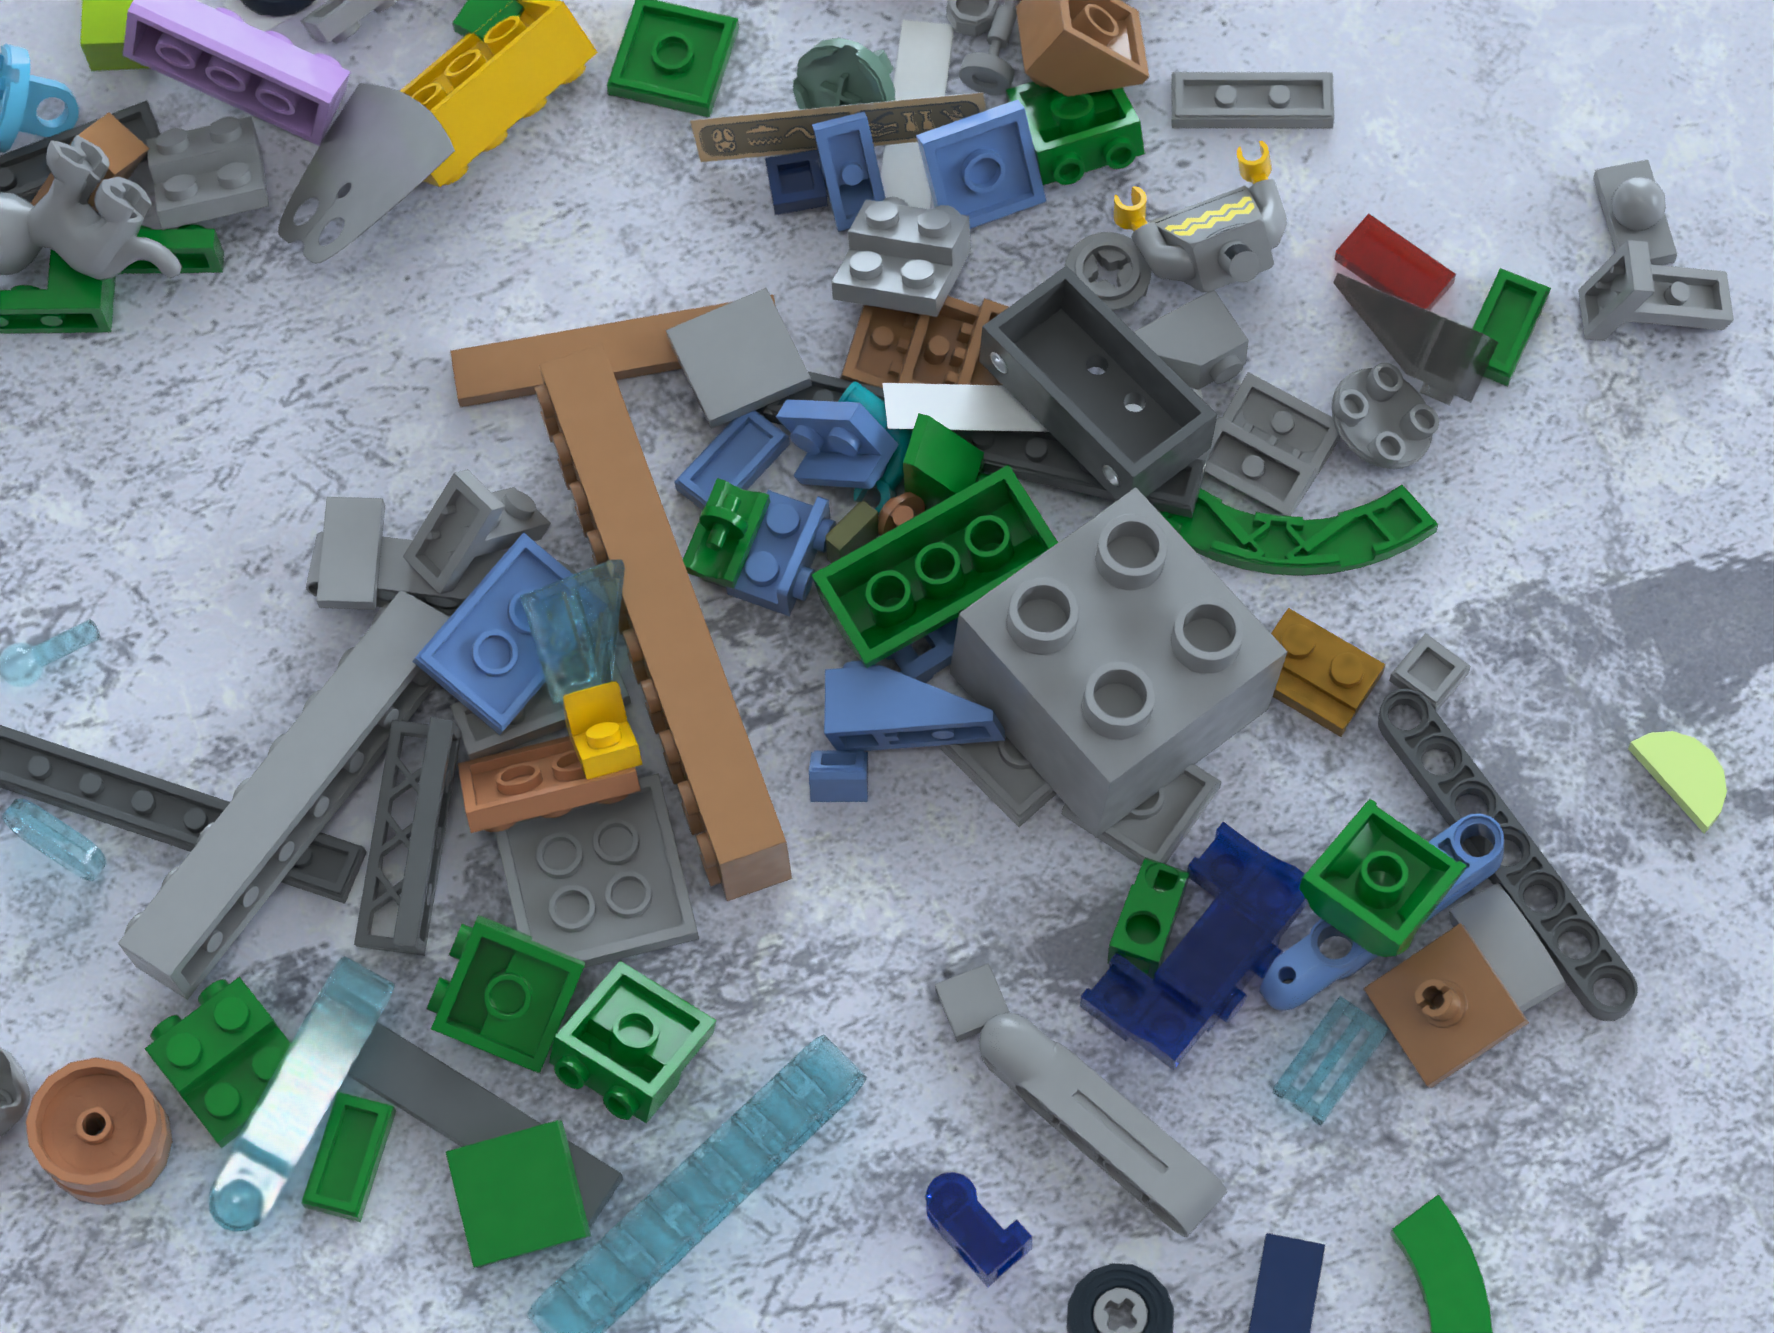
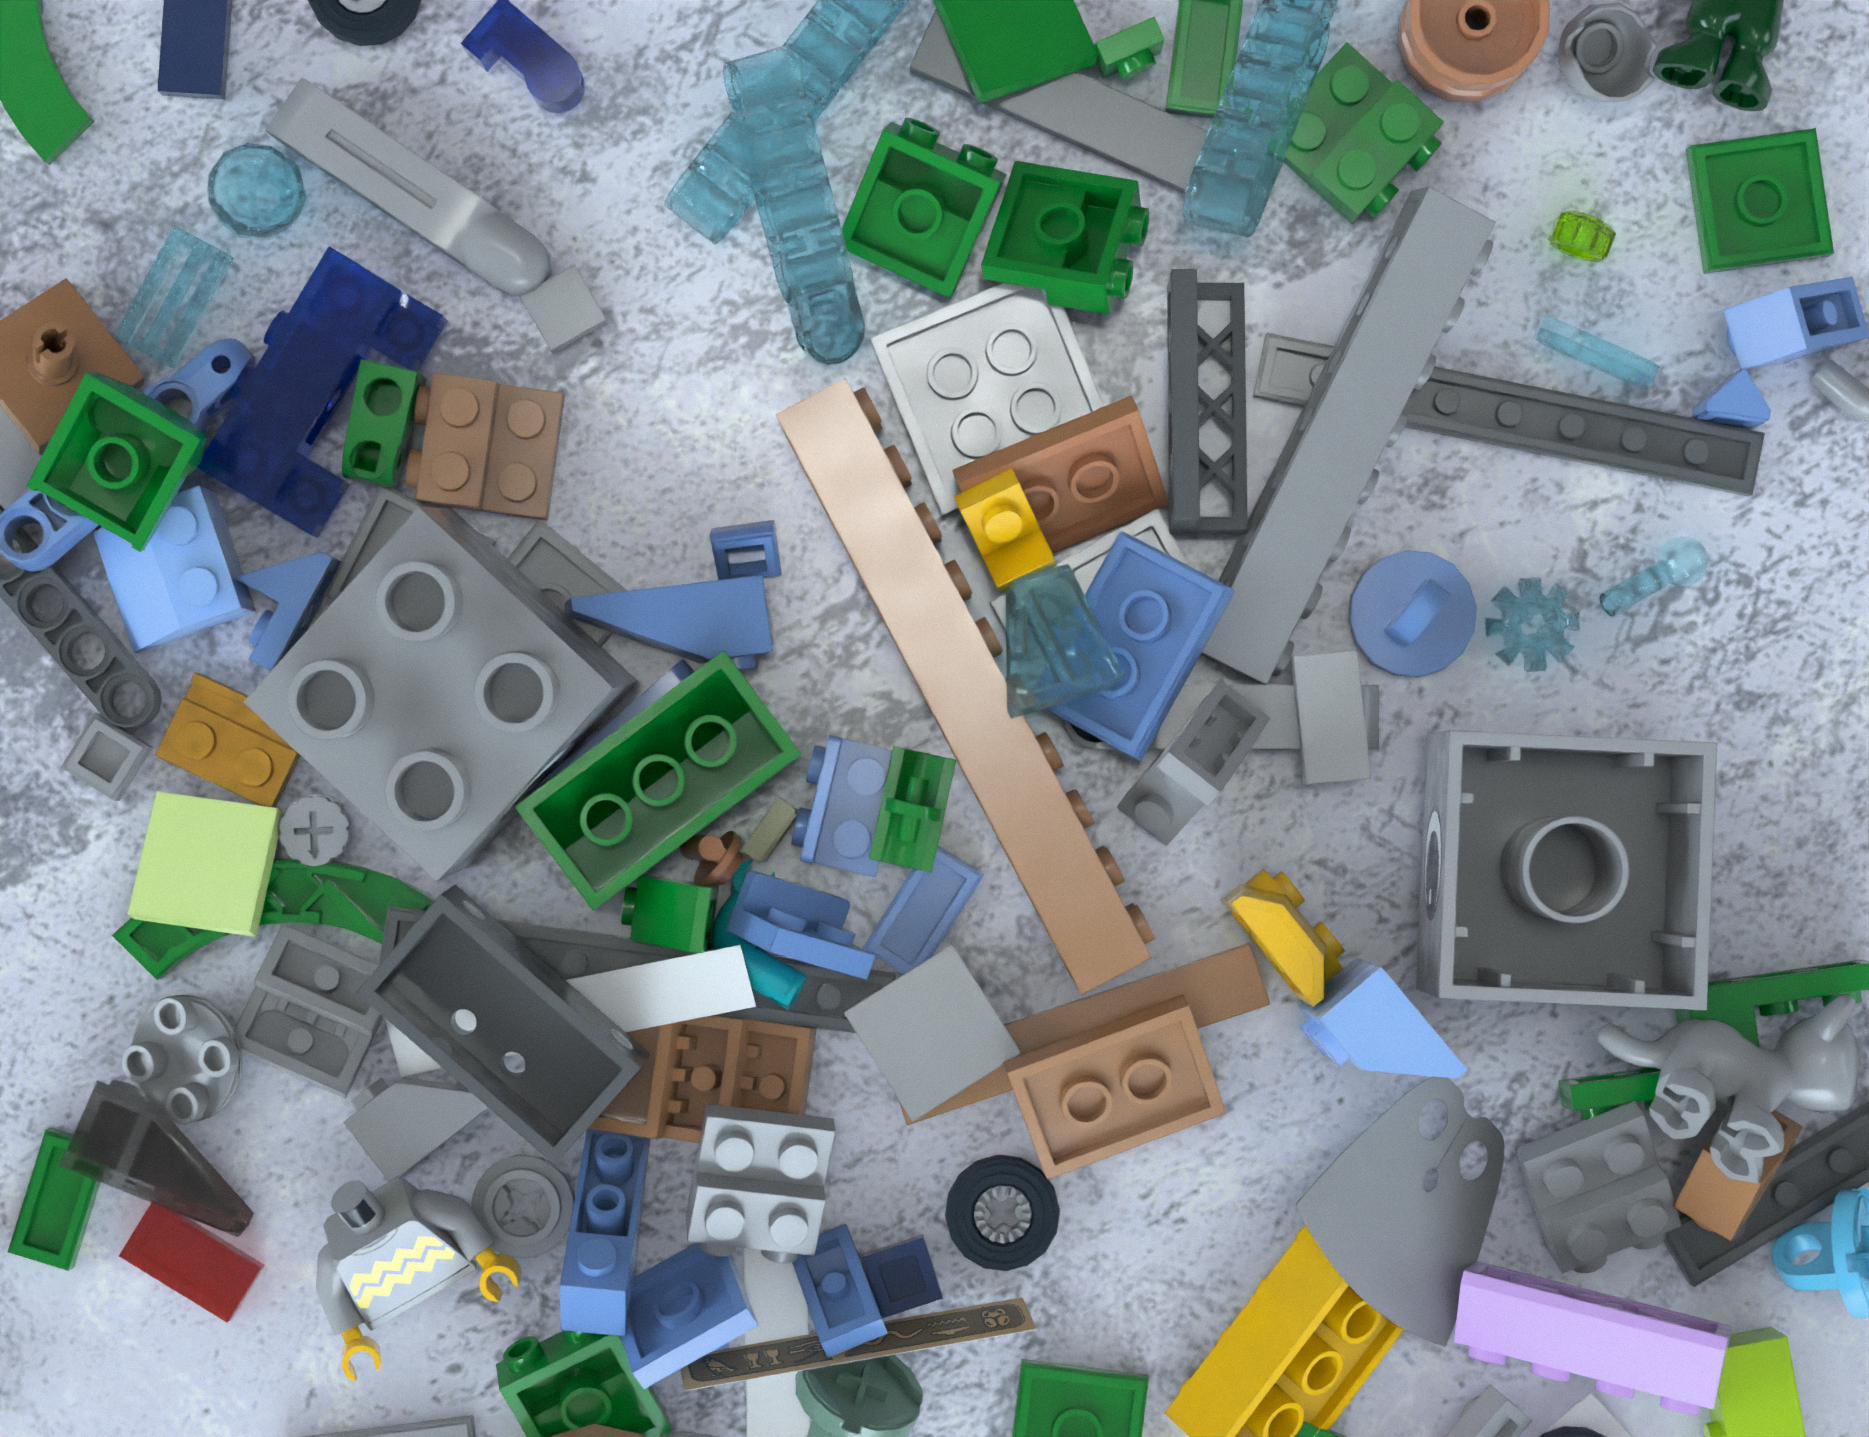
camera: 165 degrees right, 20 degrees up
(44, 941) = (1582, 236): none -> clear neon green tile
(174, 632) = (1516, 612): none -> clear light blue piece
(178, 396) = (1567, 869): none -> light grey brick
(264, 648) = (1412, 613): none -> medium blue tile
(365, 298) = (1376, 1026): none -> light blue slope
(416, 1158) = (1130, 50): none -> green plate
(427, 394) = (1296, 950): none -> yellow slope
(592, 297) = (1115, 1087): none -> medium nougat plate
(708, 197) = (1003, 1246): none -> black bush
(743, 1047) = (795, 202): none -> clear light blue piece
(1038, 222) = (604, 1234): none -> medium blue slope
(1058, 889) = (486, 446): none -> medium nougat plate
(1239, 1132) = (256, 191): none -> clear light blue hair
(1244, 784) = (300, 591): none -> medium blue slope
(1253, 582) = (315, 829): none -> light grey piece
(1334, 786) = (181, 577): none -> light blue slope
(1347, 566) = (205, 864): none -> yellowish green tile

